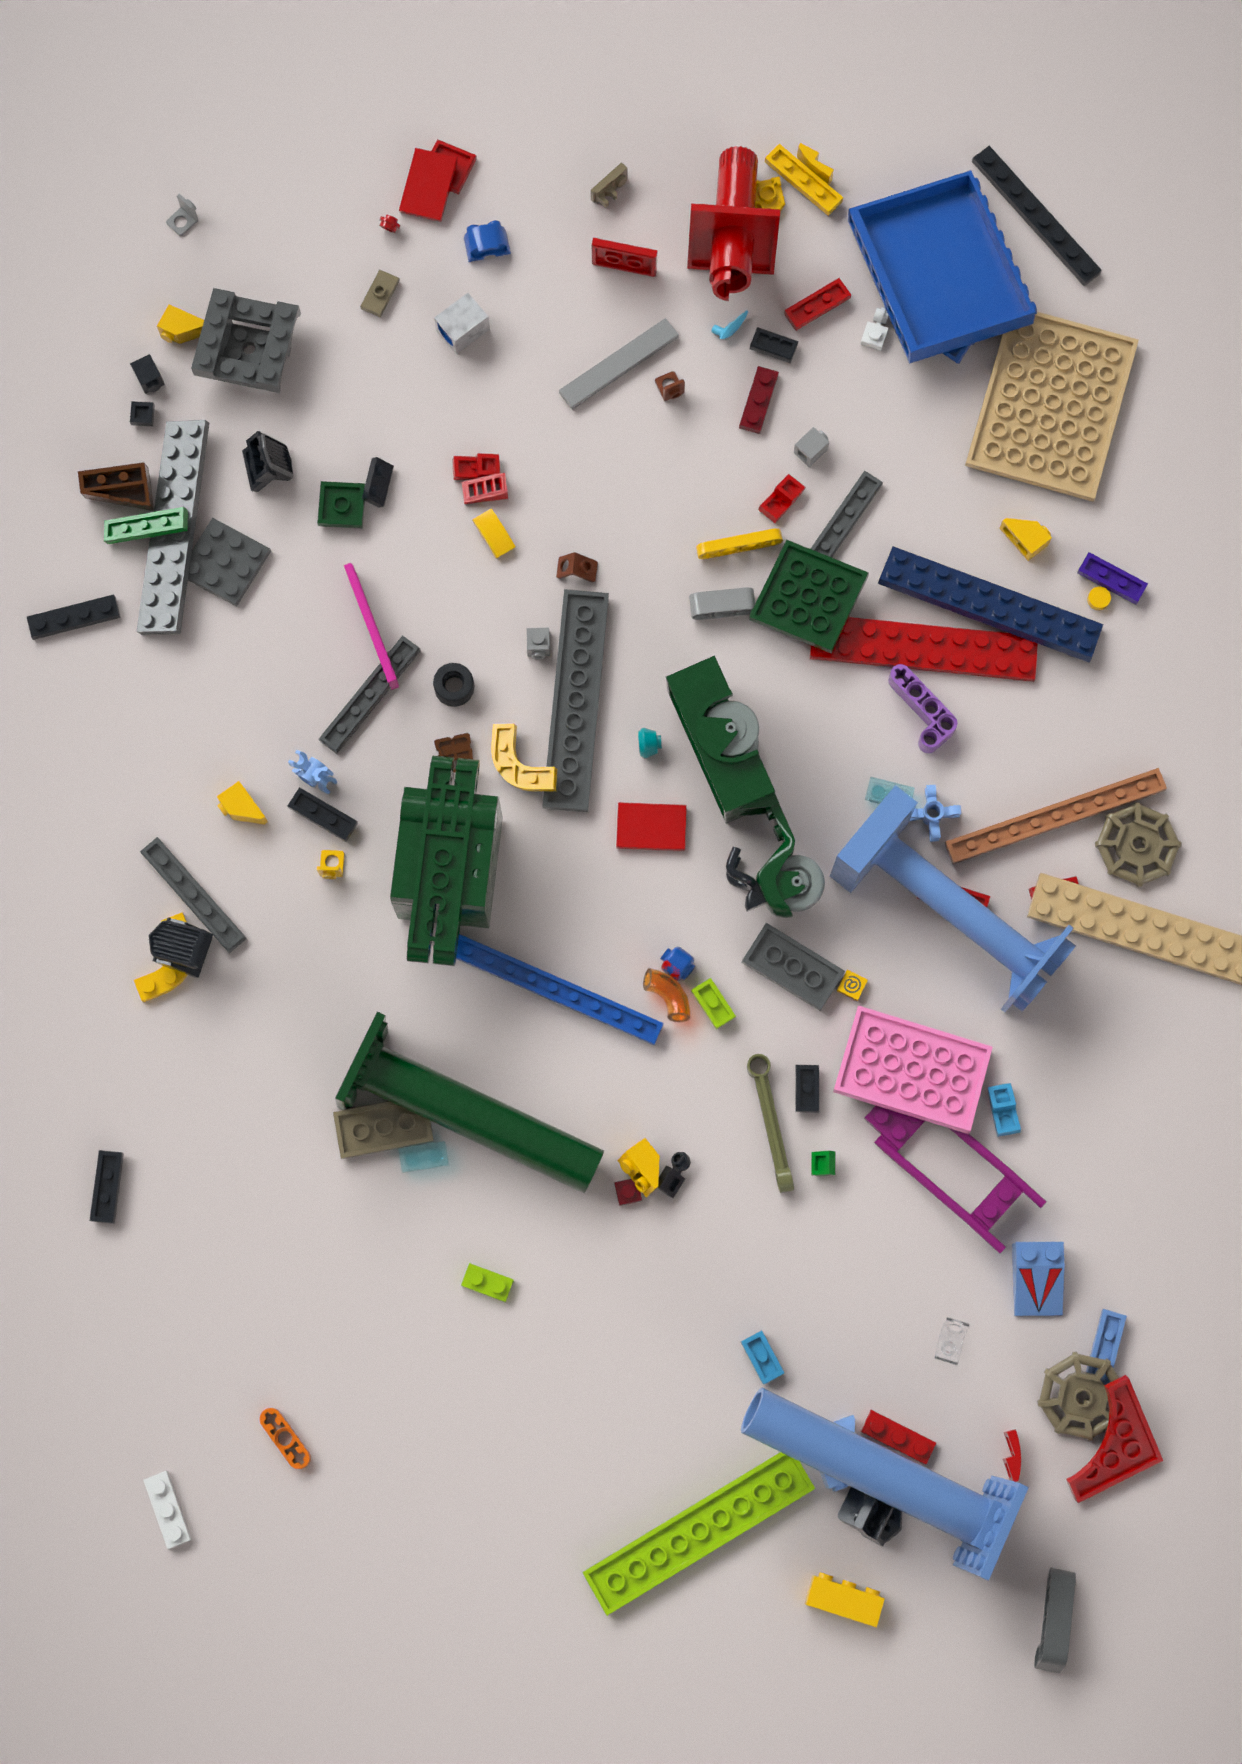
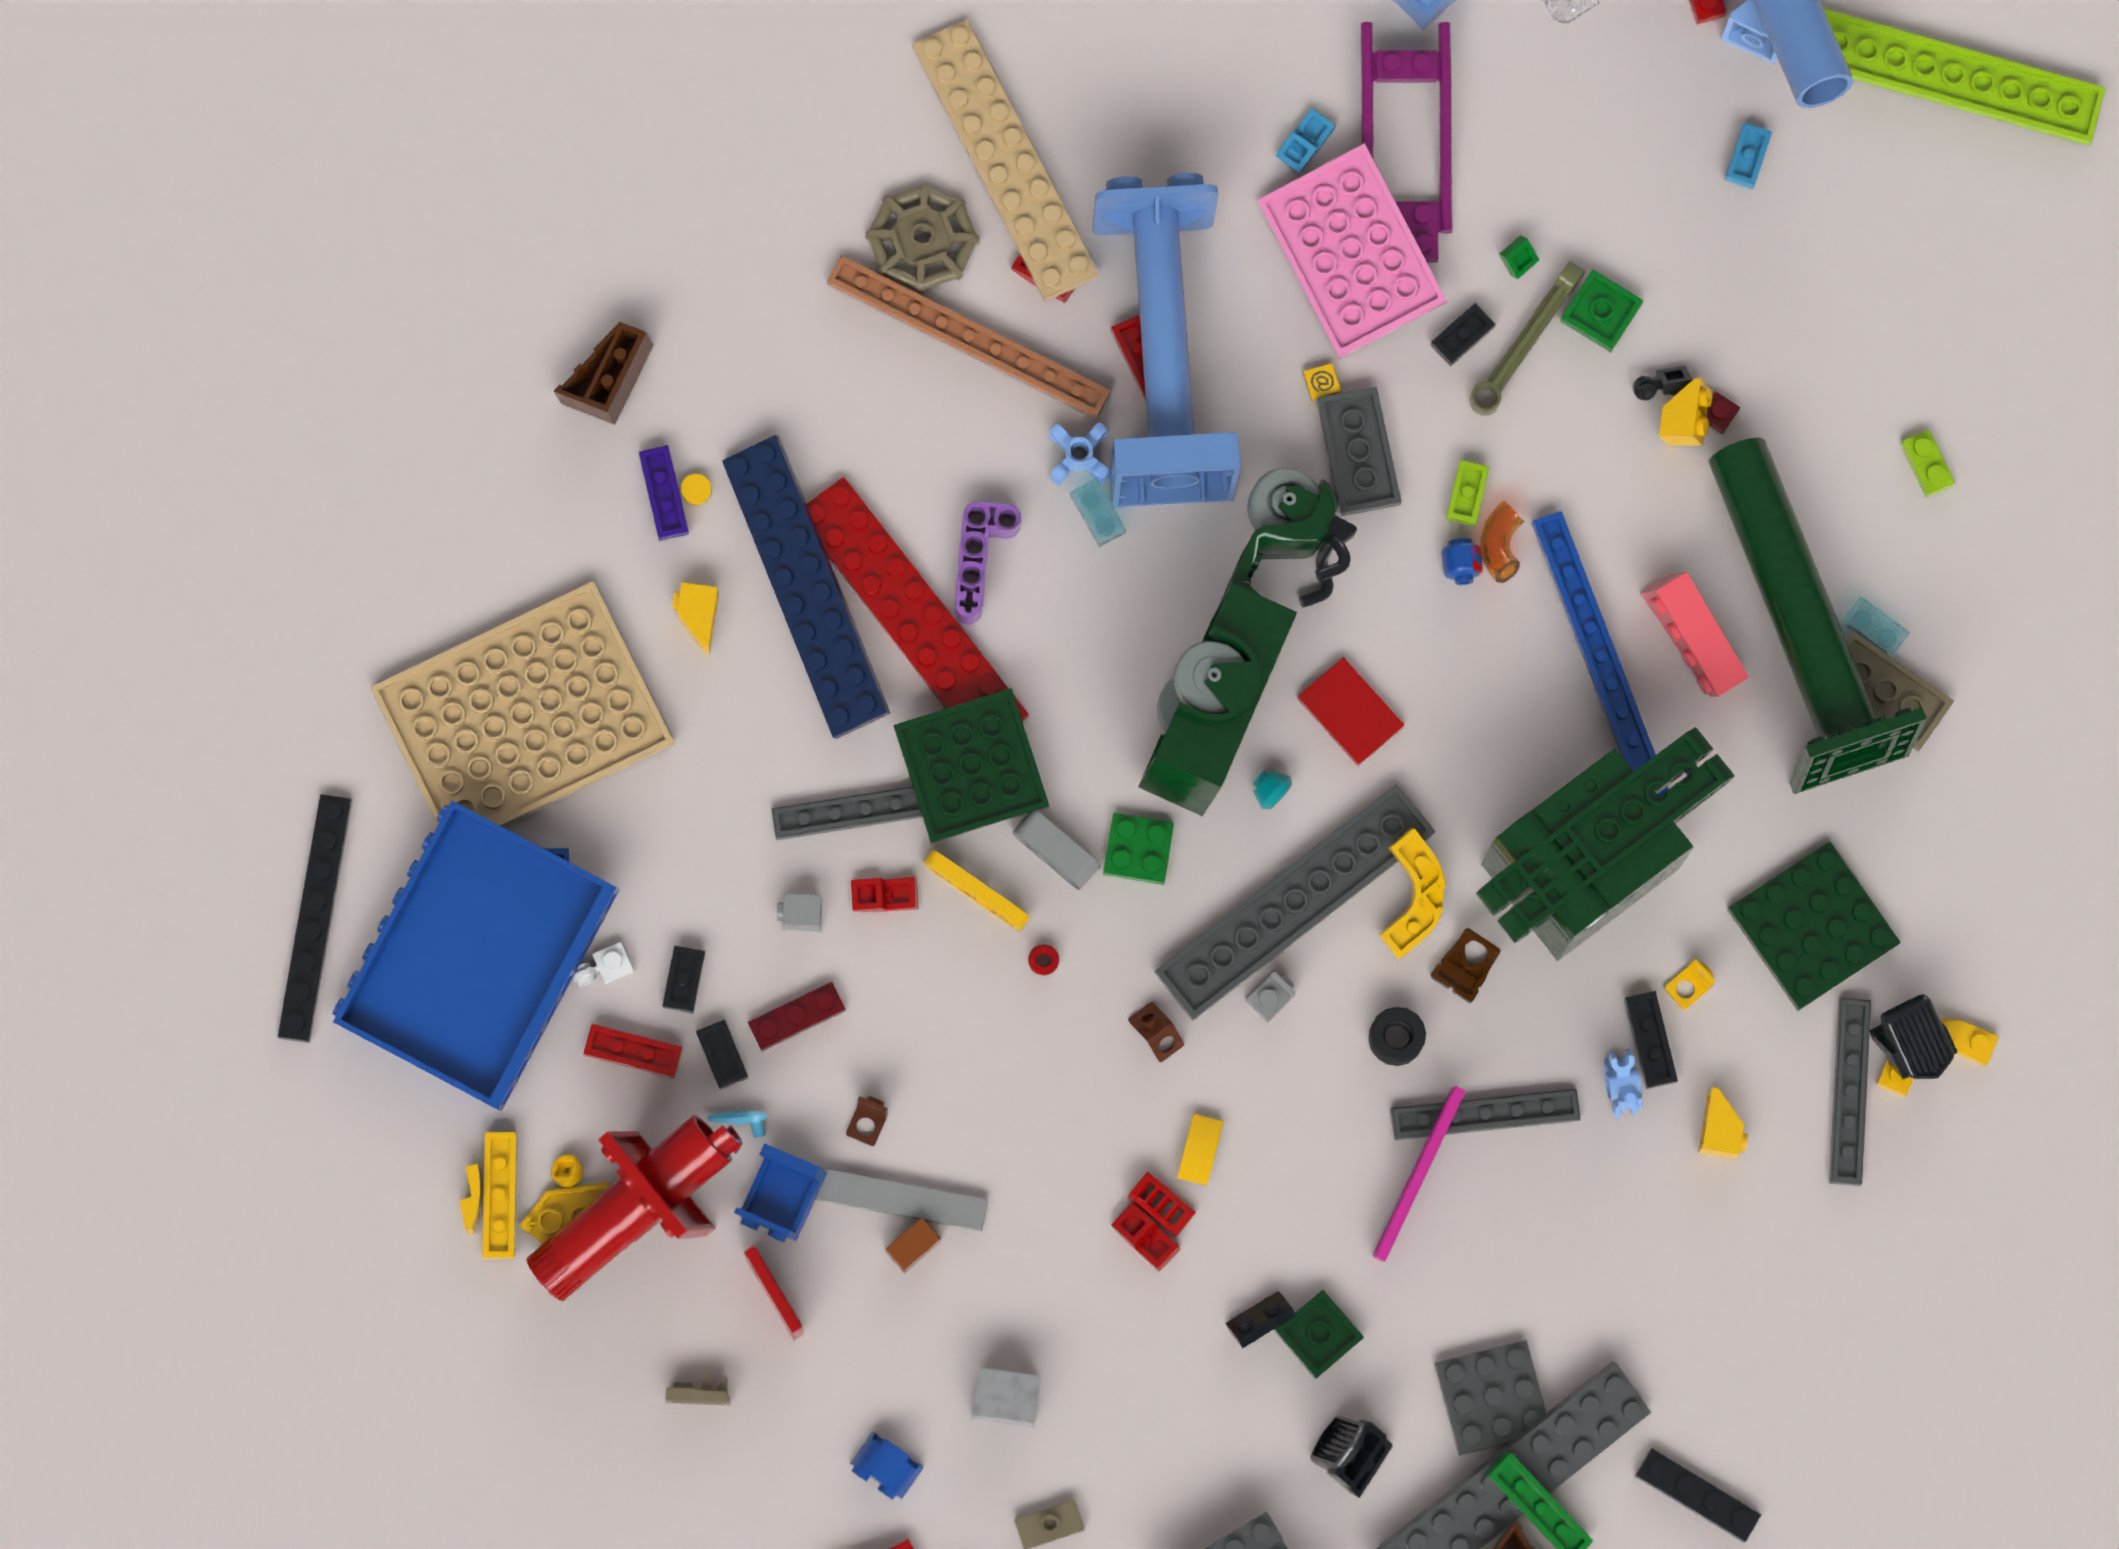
camera: 140 degrees left, 0 degrees up
(297, 962) = (1813, 926): none -> dark green plate
(515, 1048) = (1695, 633): none -> coral wedge
(583, 349) = (913, 1245): none -> dark orange piece
(669, 539) = (1048, 951): none -> red plate
(672, 307) = (781, 1194): none -> blue panel
(682, 646) = (1138, 848): none -> green plate
(748, 1180) = (1601, 310): none -> green plate
(787, 221) = (567, 1170): none -> yellow tile
(831, 360) = (683, 979): none -> black plate
(1207, 604) = (608, 375): none -> reddish brown wedge

